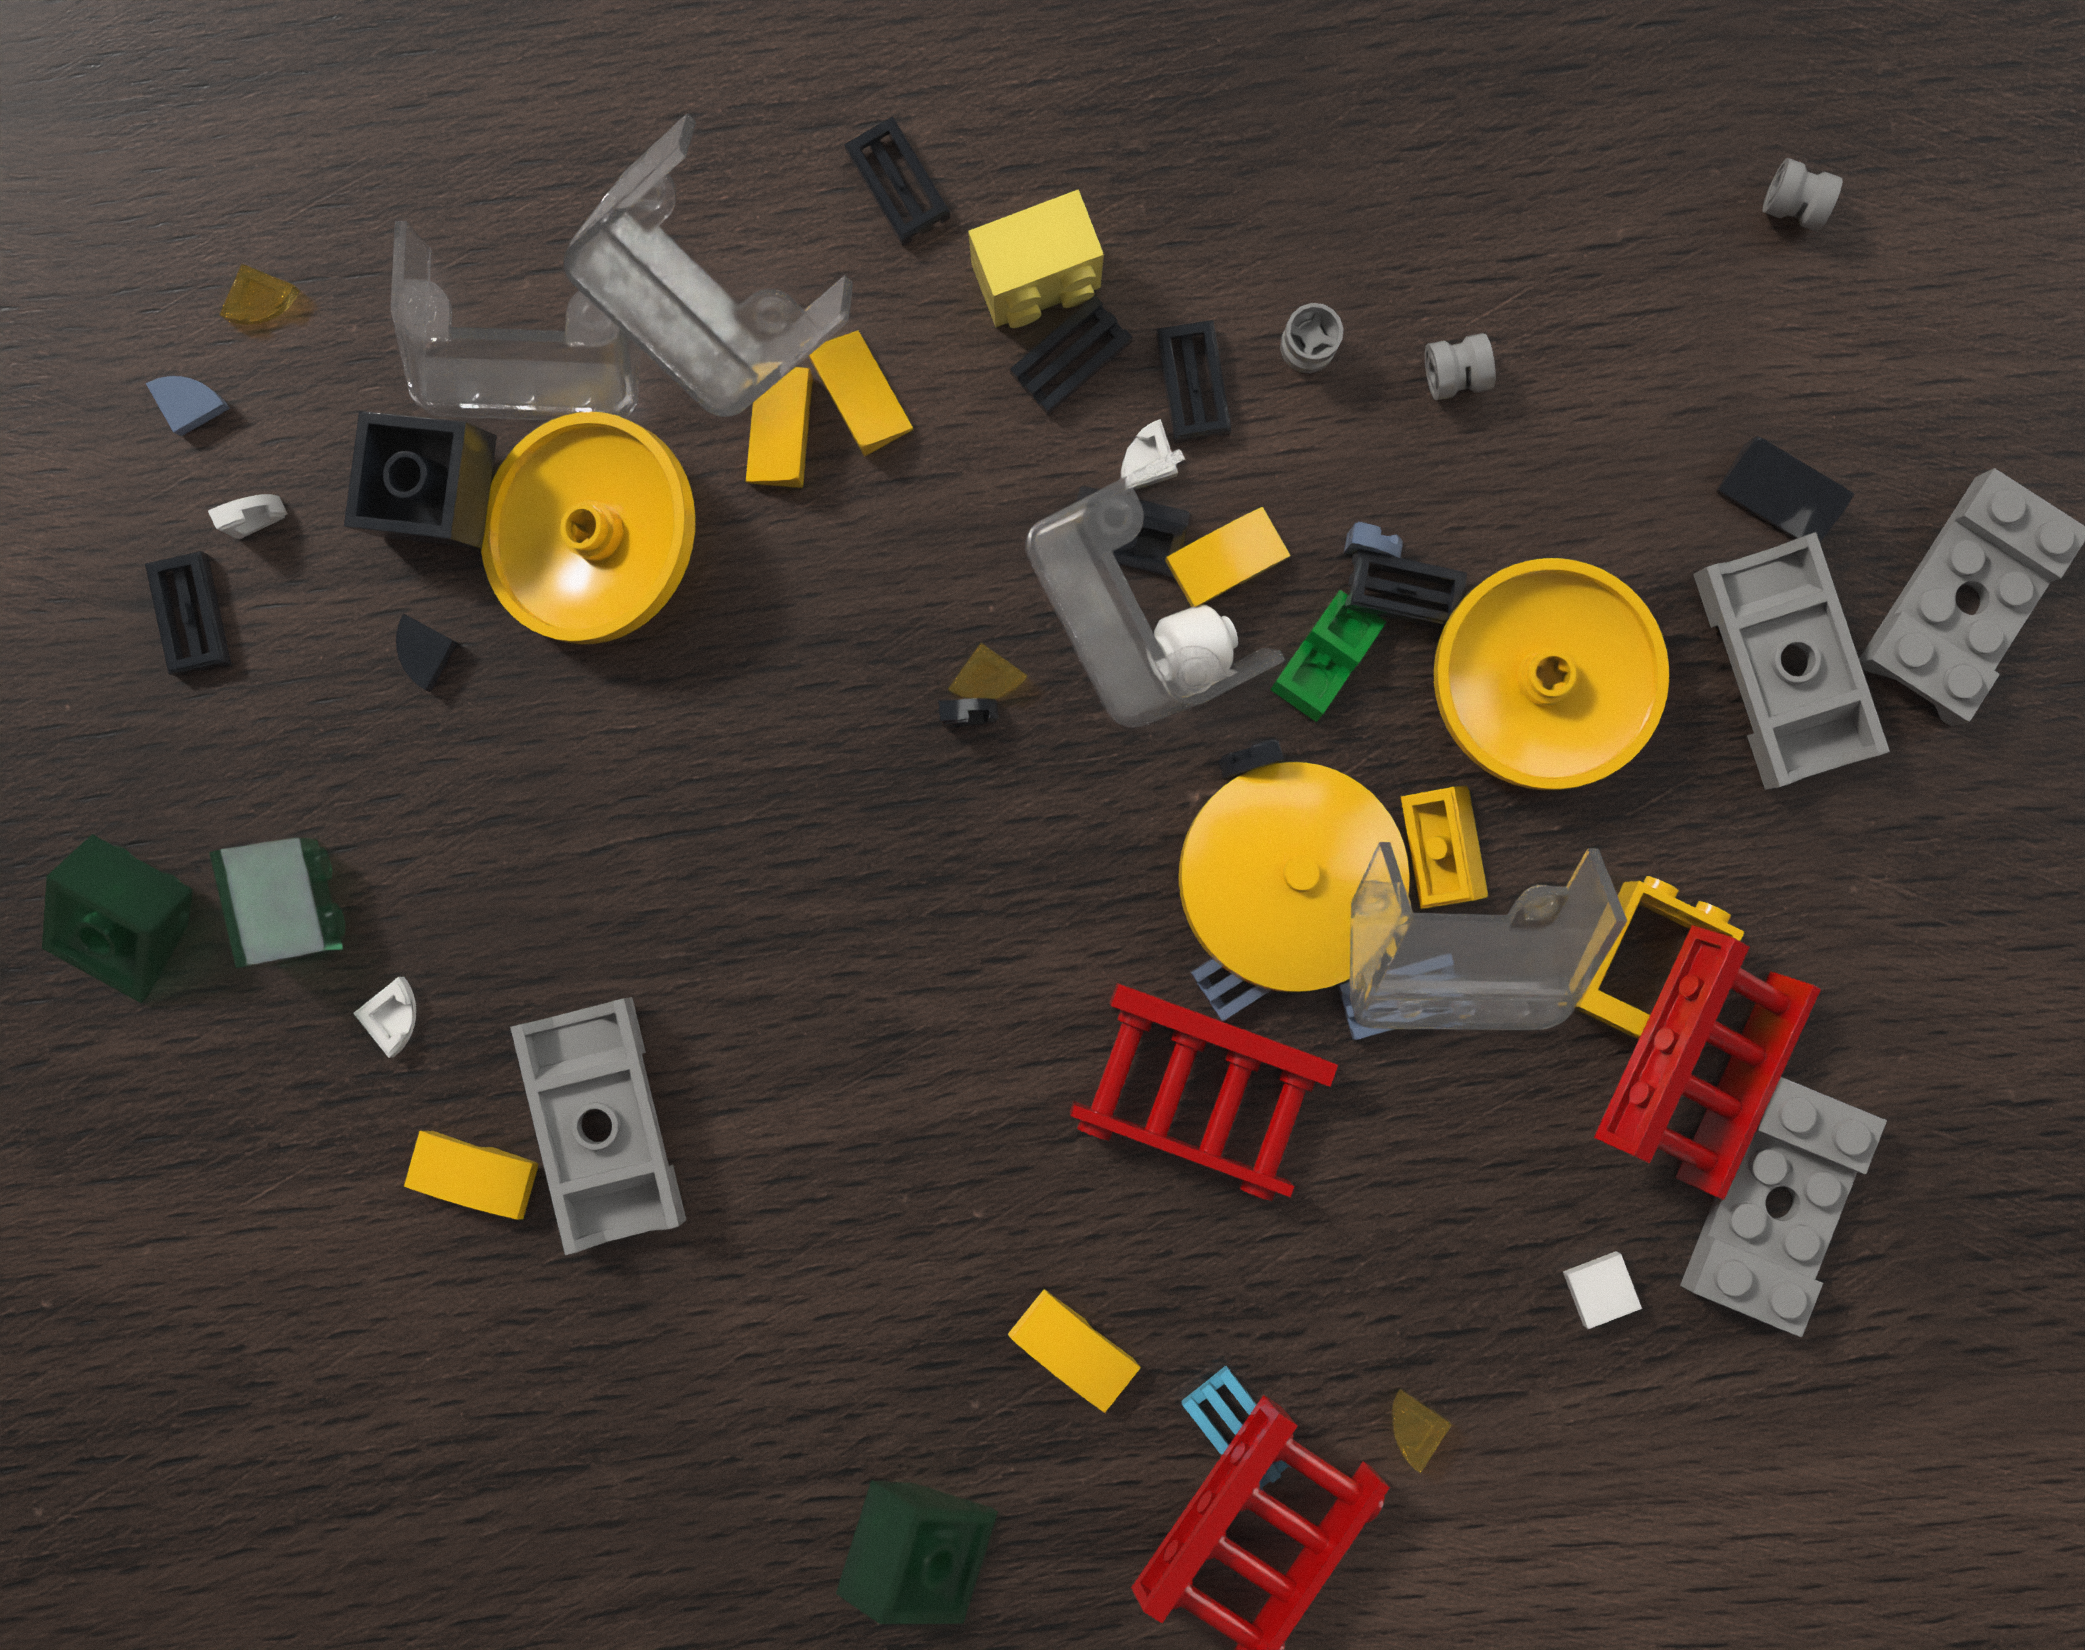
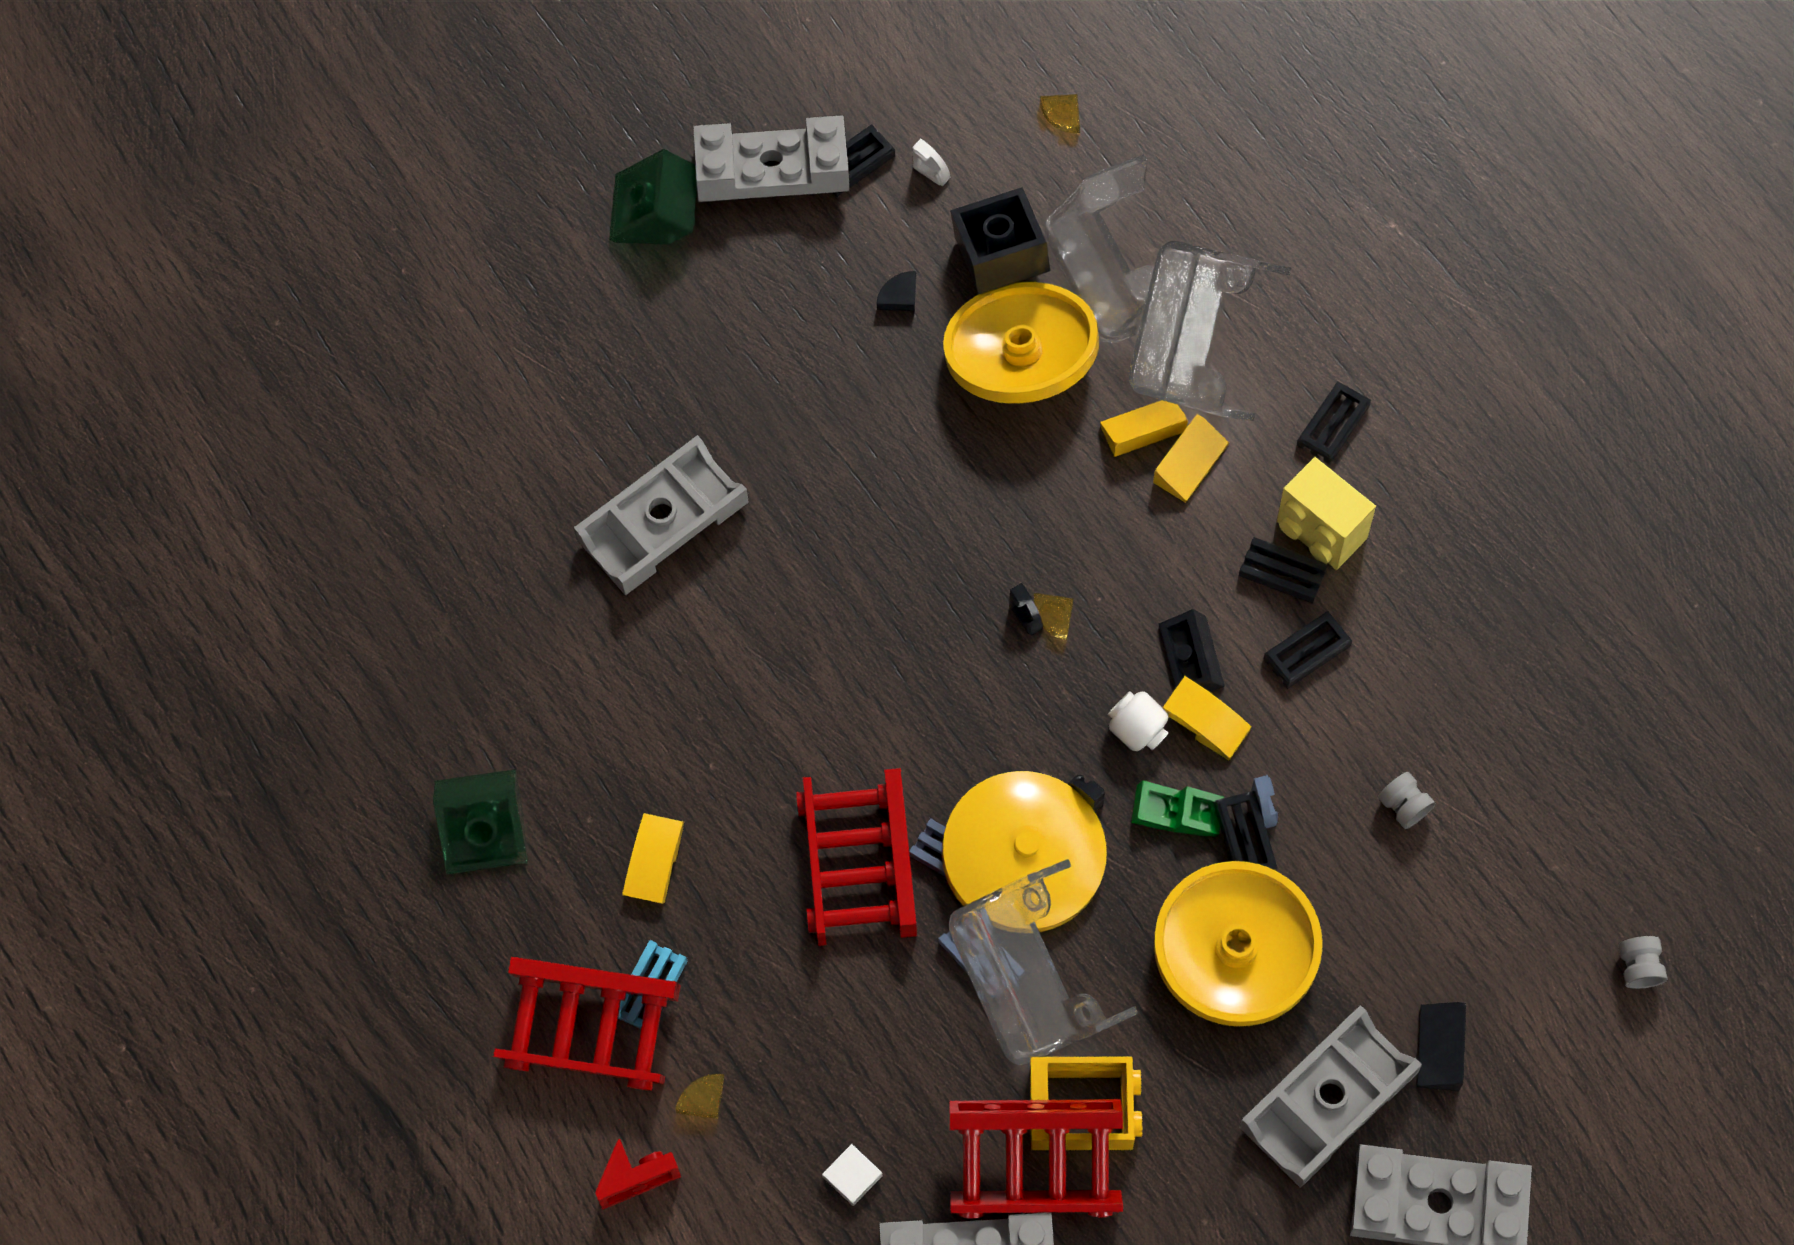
camera: 70 degrees right, 20 degrees down
(105, 782) = (809, 161): none -> light grey piece
(186, 402) = (978, 103): sand blue tile -> none
(277, 902) = (708, 278): clear green slope -> none
(390, 1016) = (669, 375): white tile -> none
(471, 1175) = (594, 461): yellow slope -> none
(1104, 619) = (1097, 696): clear windscreen -> none
(1145, 448) = (1243, 645): white tile -> none
(1315, 326) = (1373, 693): light grey wheel -> none
(1444, 846) = (1094, 941): yellow slope -> none
(1485, 1576) = (624, 1182): none -> red slope

